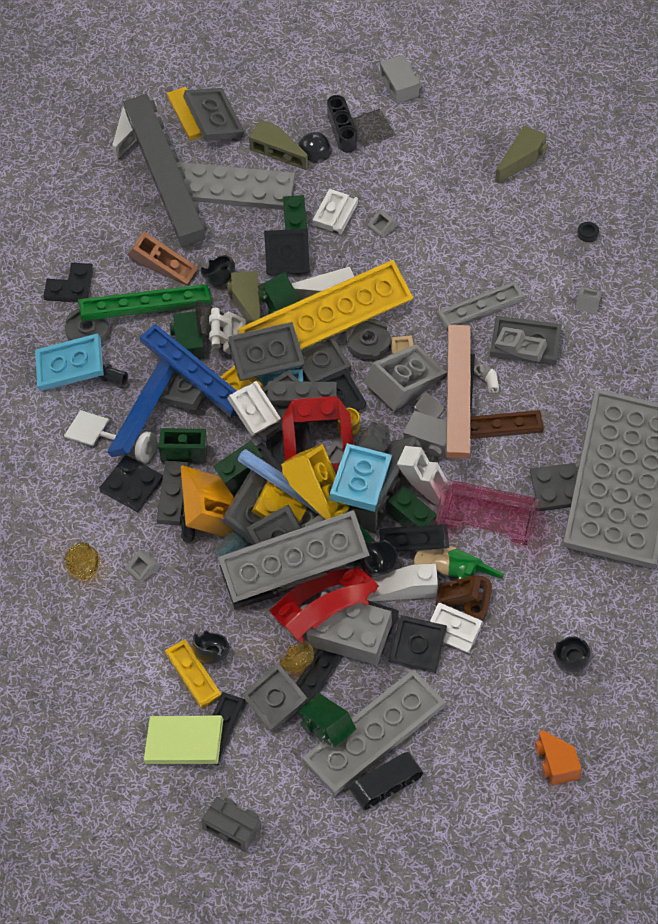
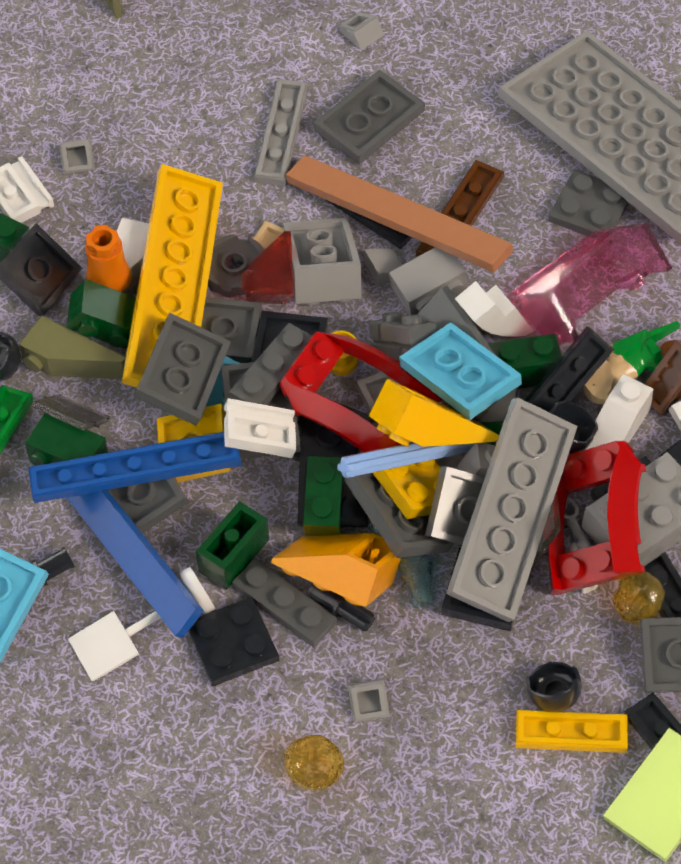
camera: 55 degrees left, 0 degrees up
(230, 325) = (101, 401): white plate -> none
(305, 274) = (106, 259): none -> orange plant
(368, 352) = (270, 274): none -> clear red slope
(487, 375) = (391, 180): arm -> none
(518, 344) = (382, 120): light grey slope -> none

